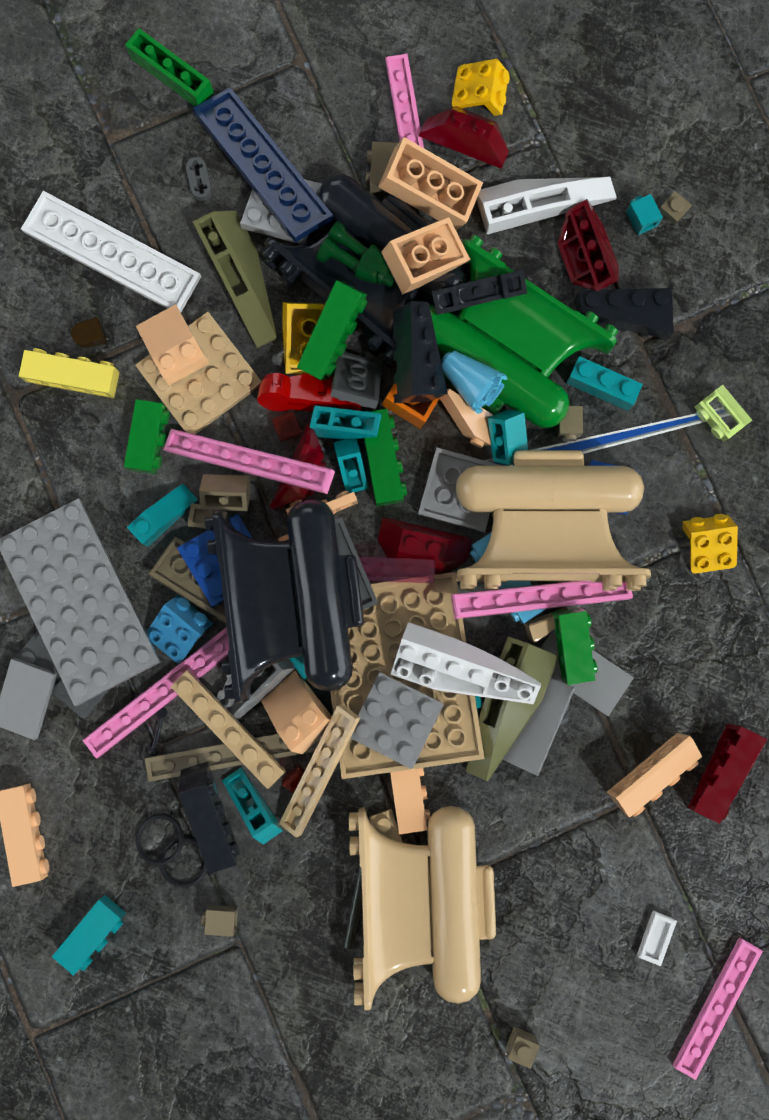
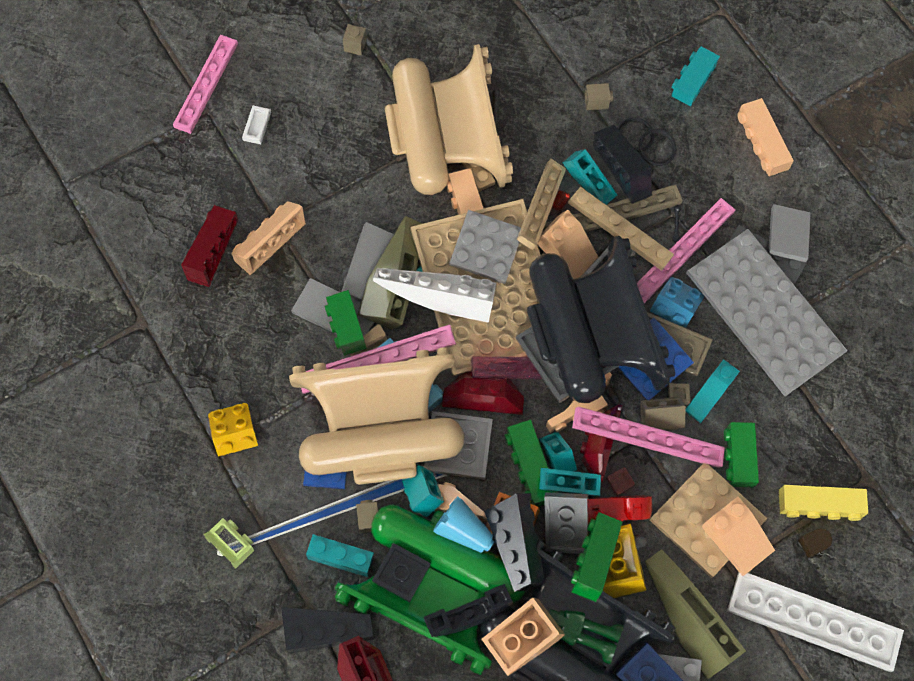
camera: 165 degrees right, 15 degrees down
(544, 344) = (401, 572): none -> black plate

